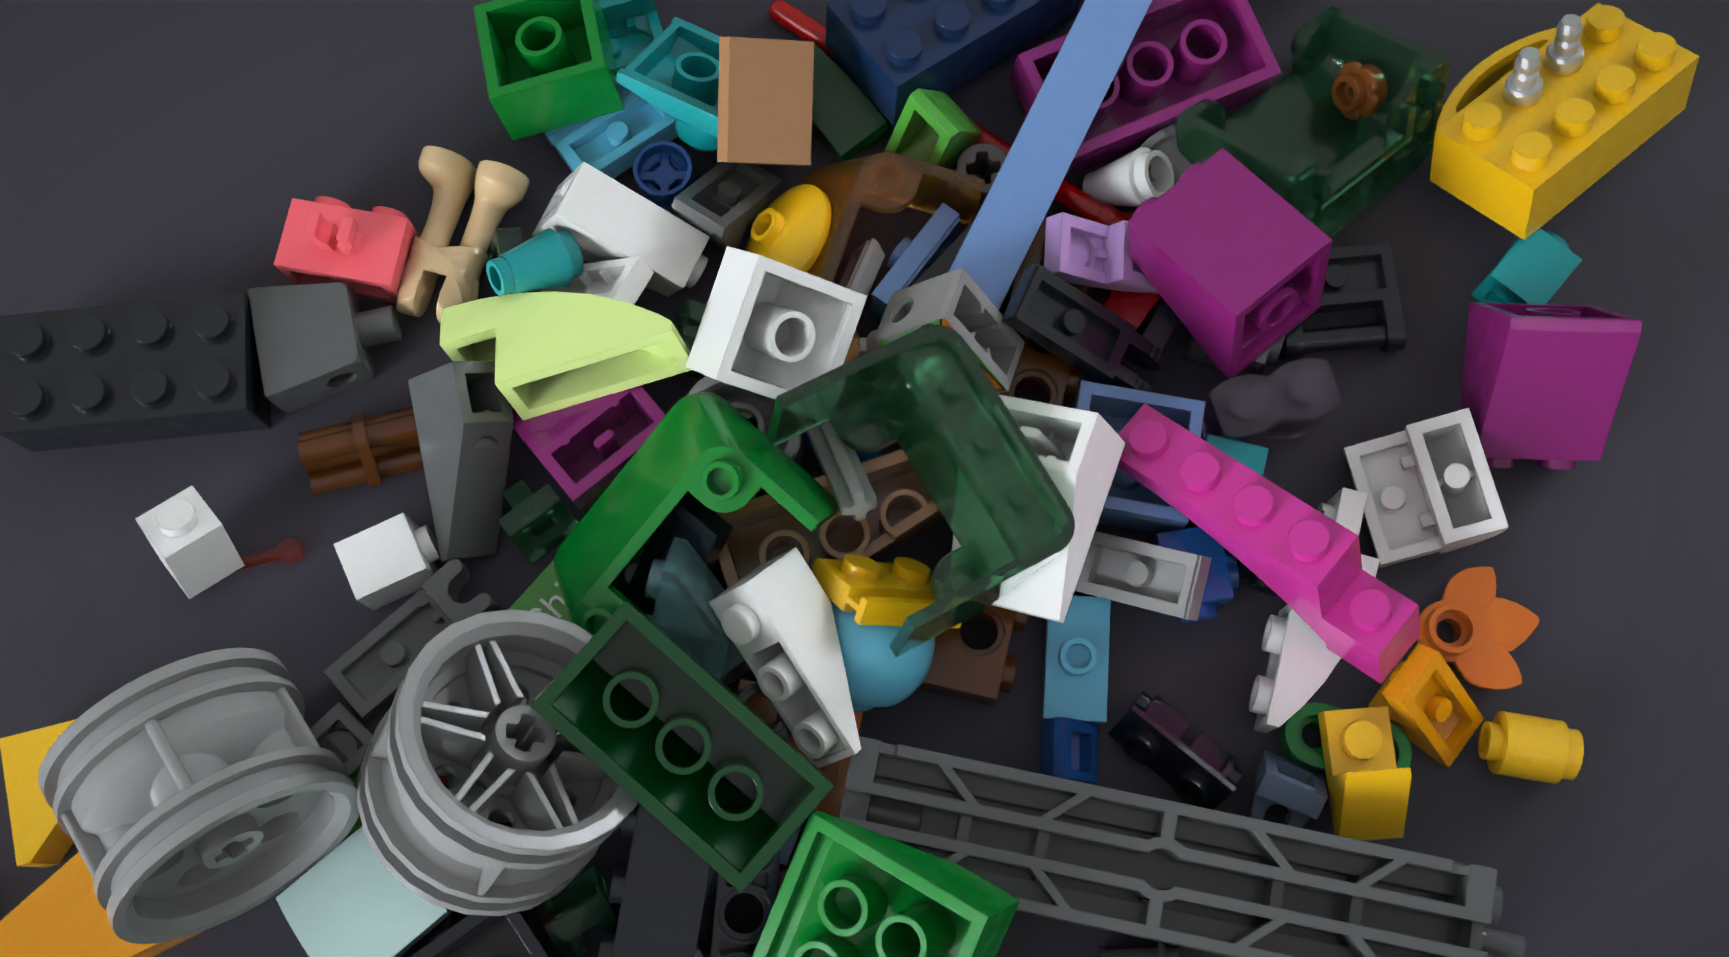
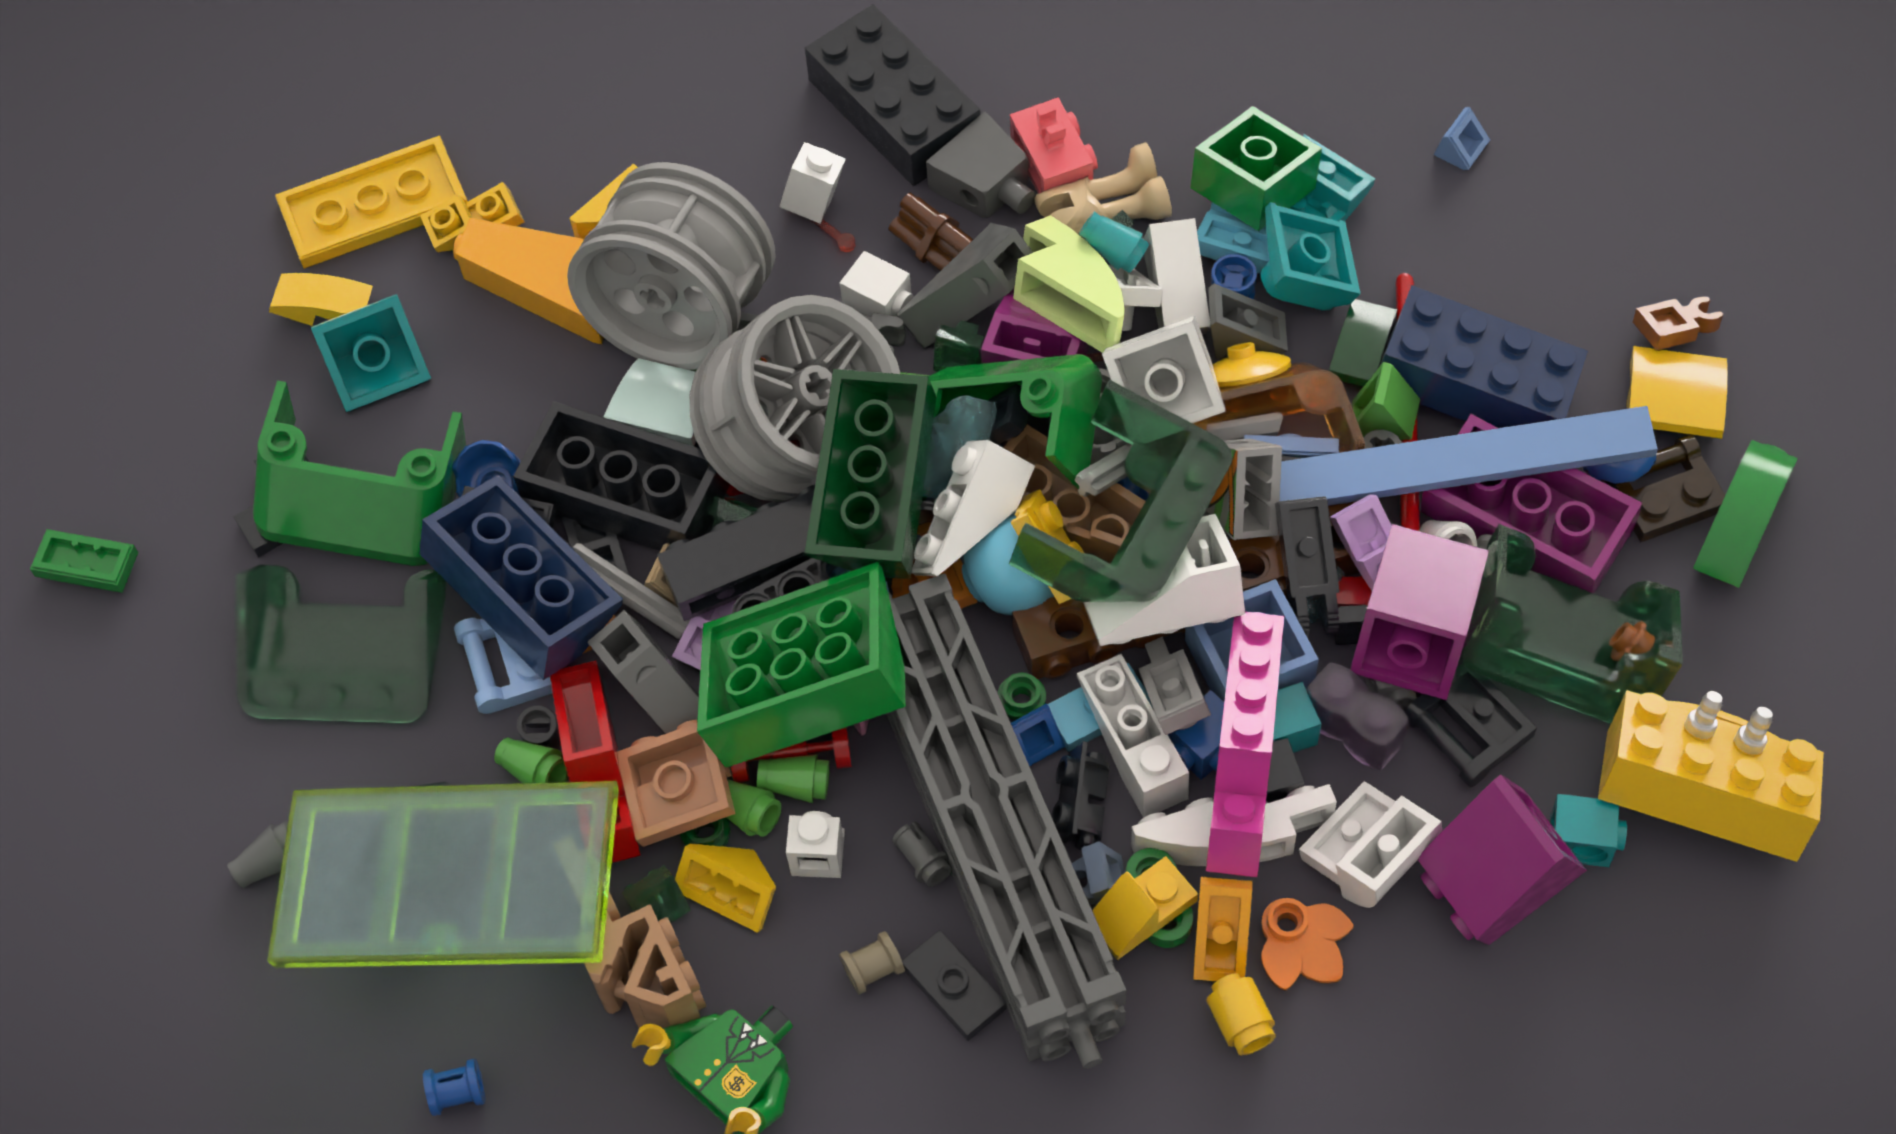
camera: 60 degrees right, 15 degrees down
(765, 101) = (1316, 292): medium nougat slope -> none
(1024, 716) = (1021, 684): none -> green plate
(1153, 648) = (1134, 737): none -> white slope

